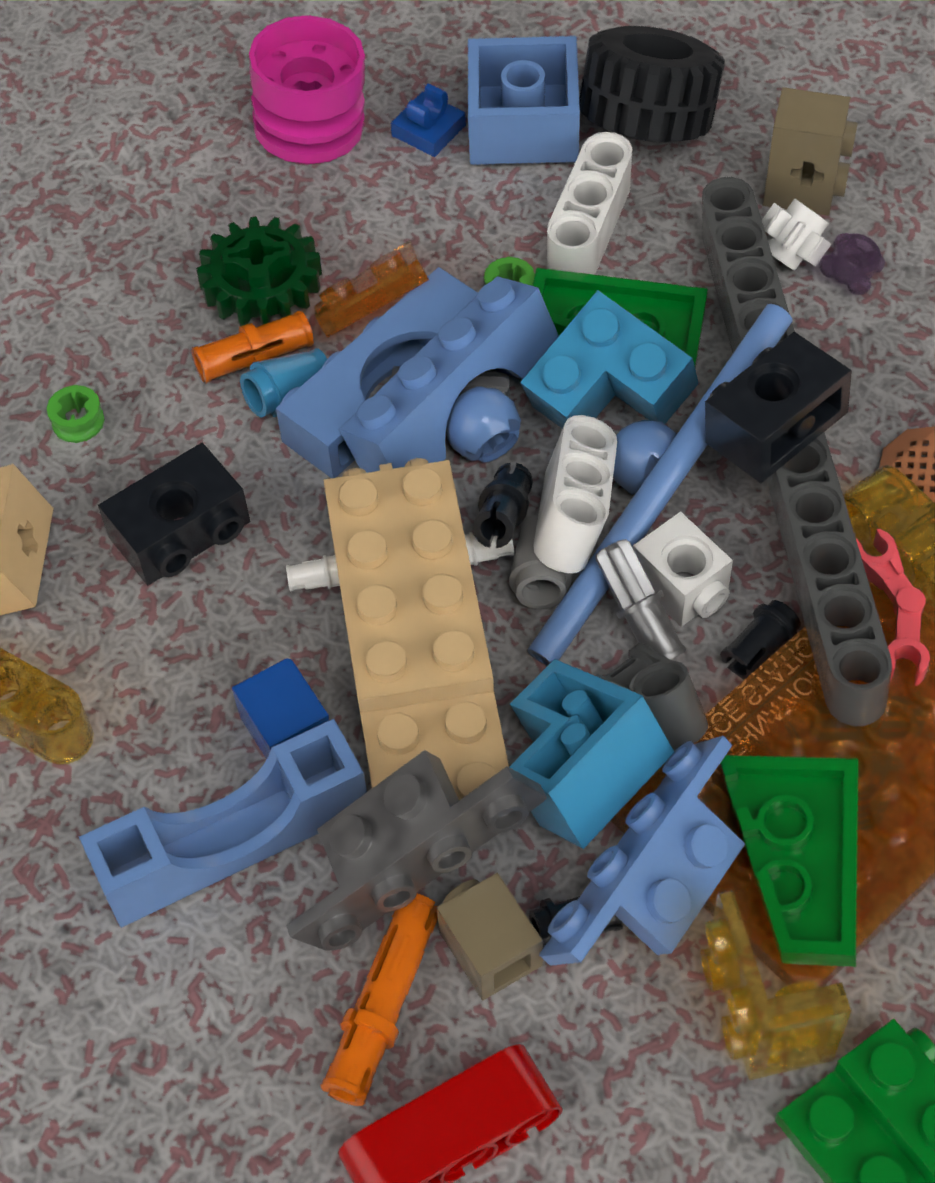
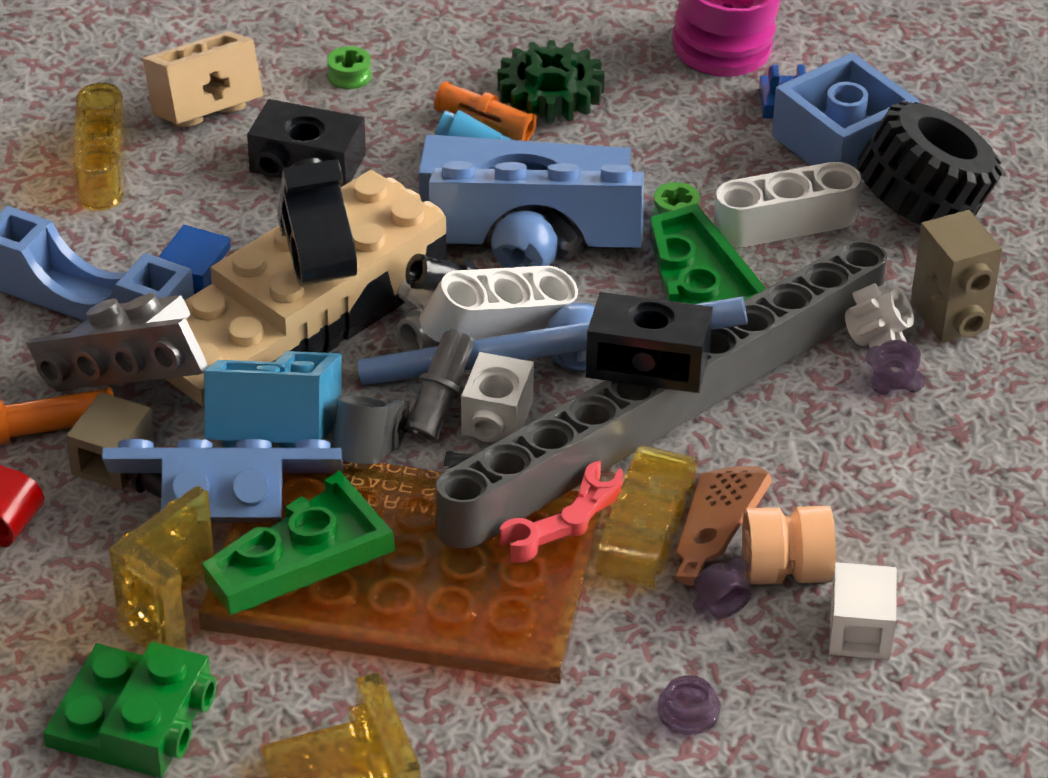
camera: 50 degrees right, 15 degrees down
(370, 290) = (598, 131): clear orange wing -> none
(431, 570) = (316, 221): none -> black pin
(607, 356) = (623, 257): dark azure brick -> none

